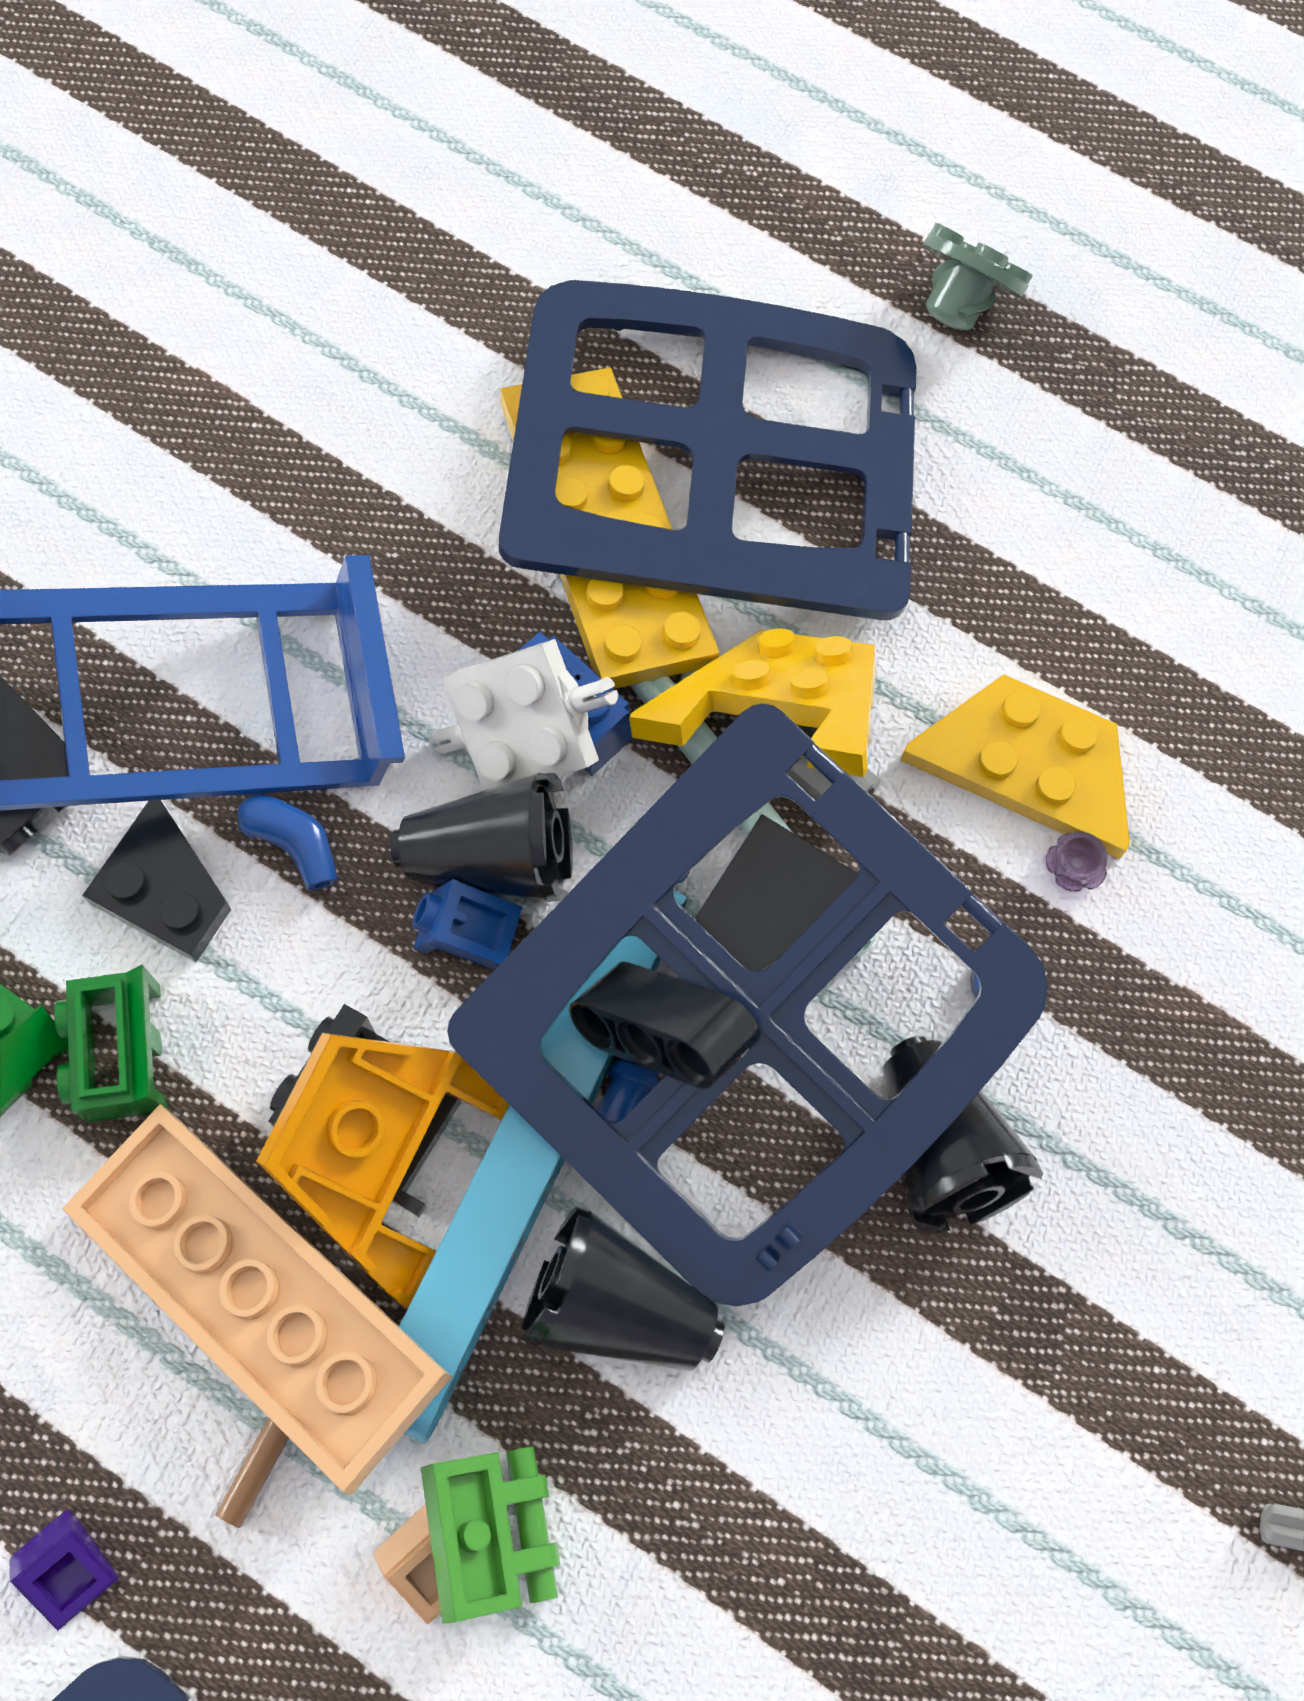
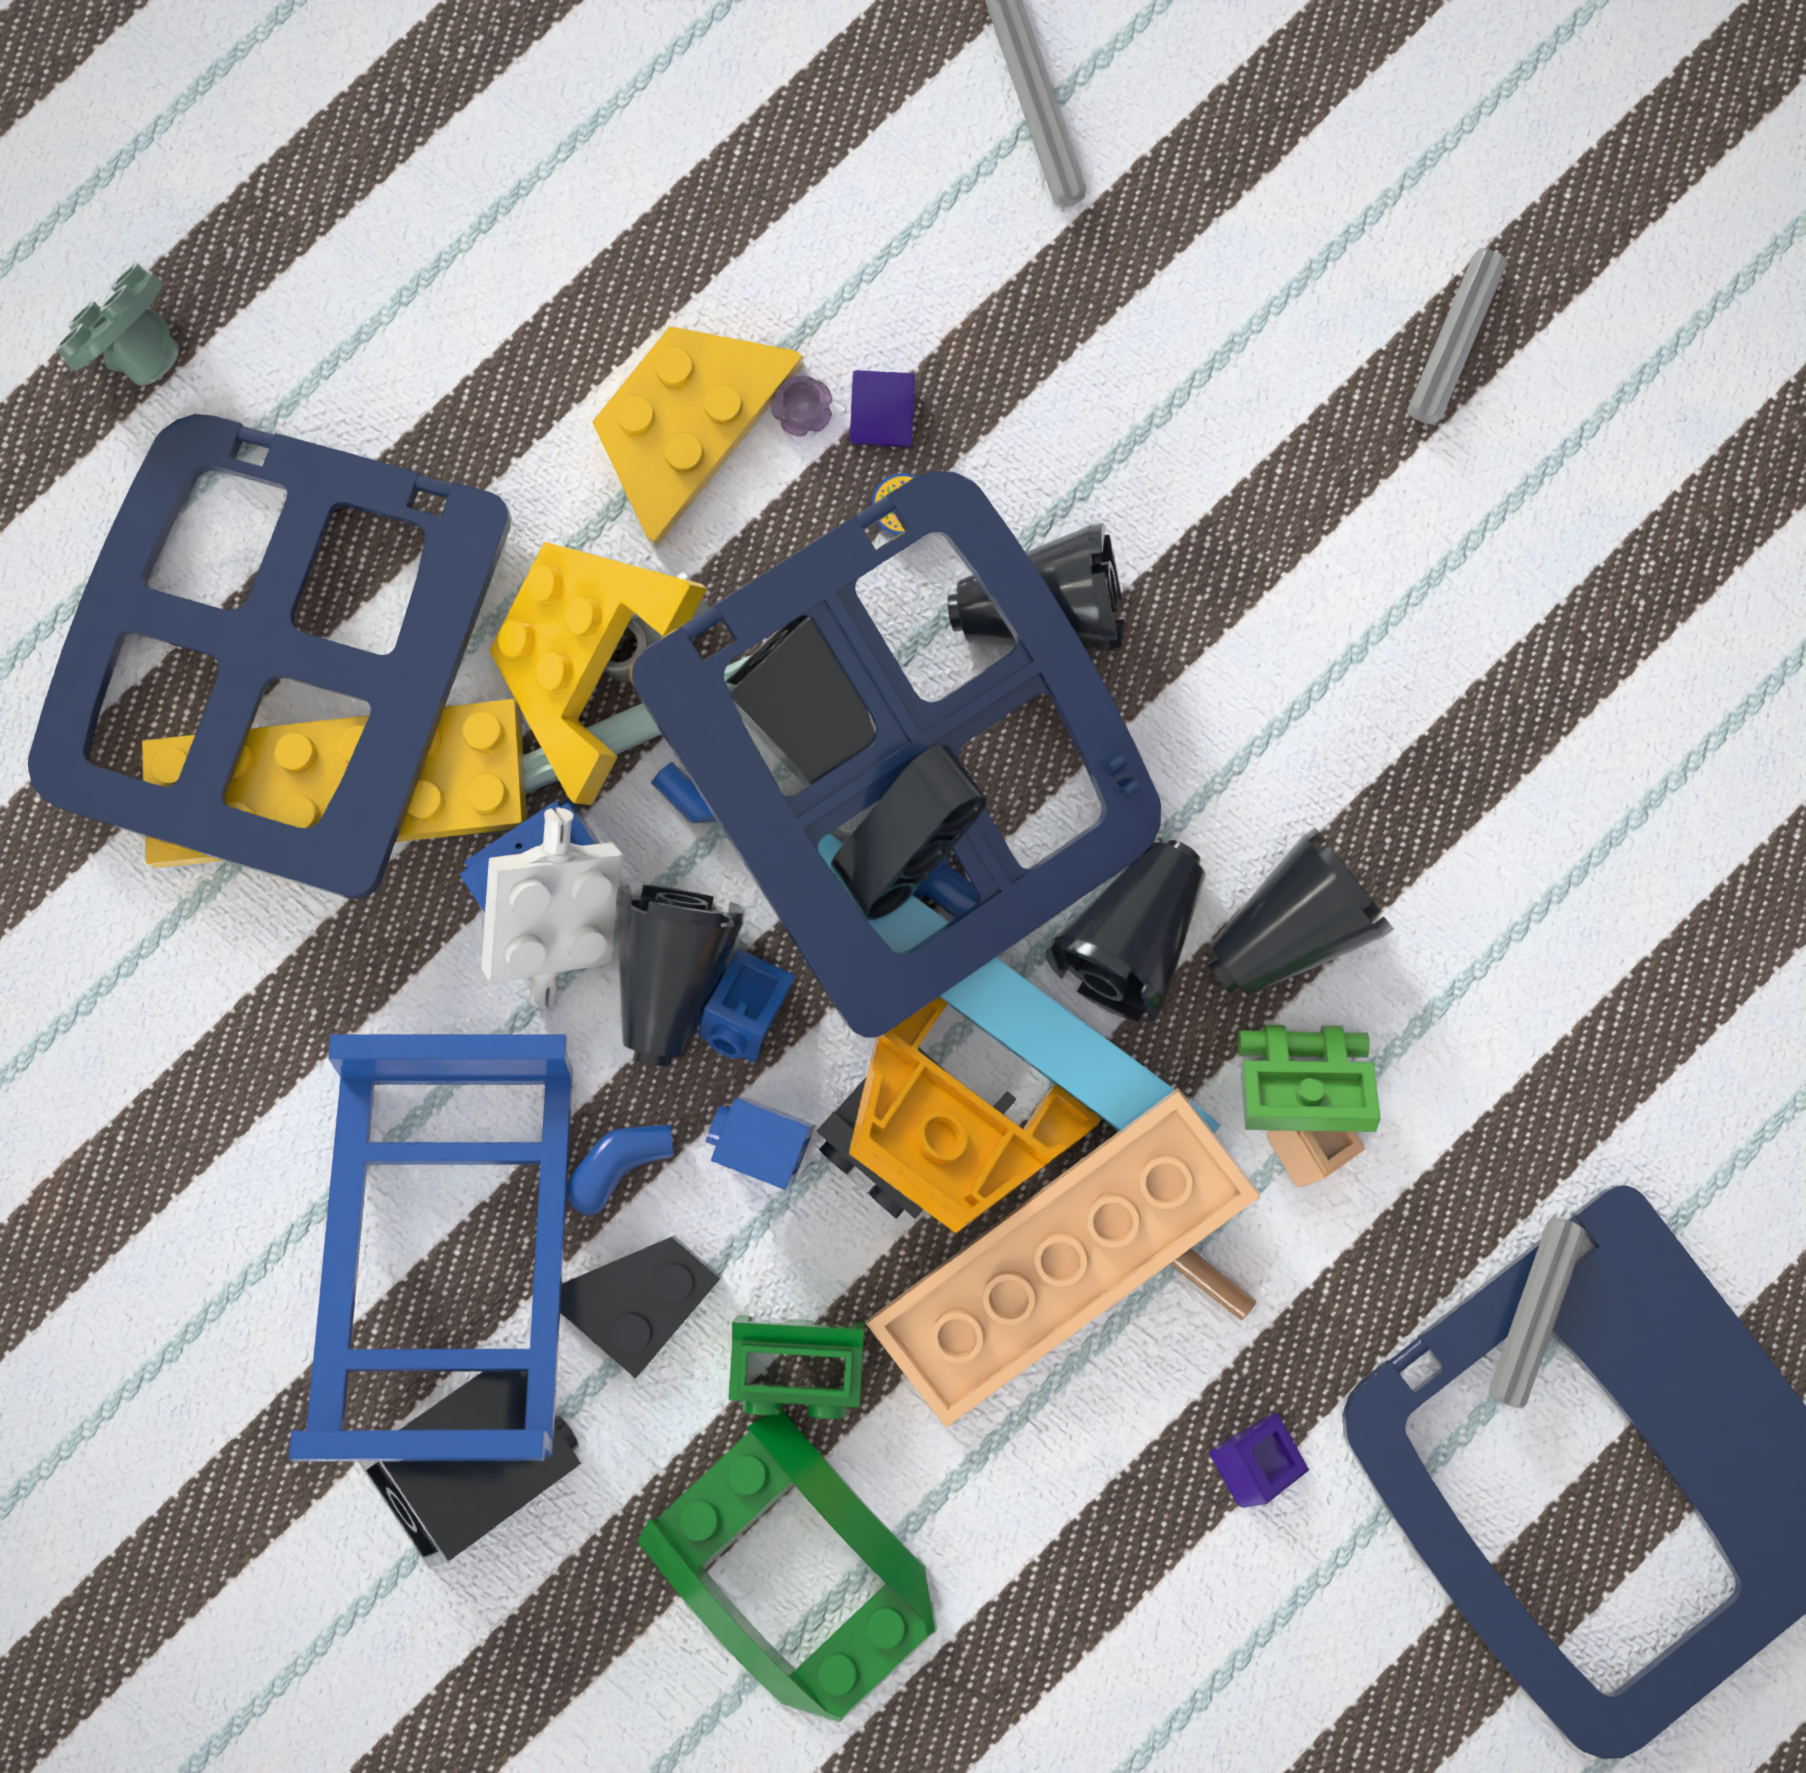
camera: 70 degrees left, 15 degrees up
(326, 956) = (759, 1141): none -> blue brick
(667, 1485) = (1296, 920): none -> black cone
(1098, 938) = (882, 408): none -> dark purple slope

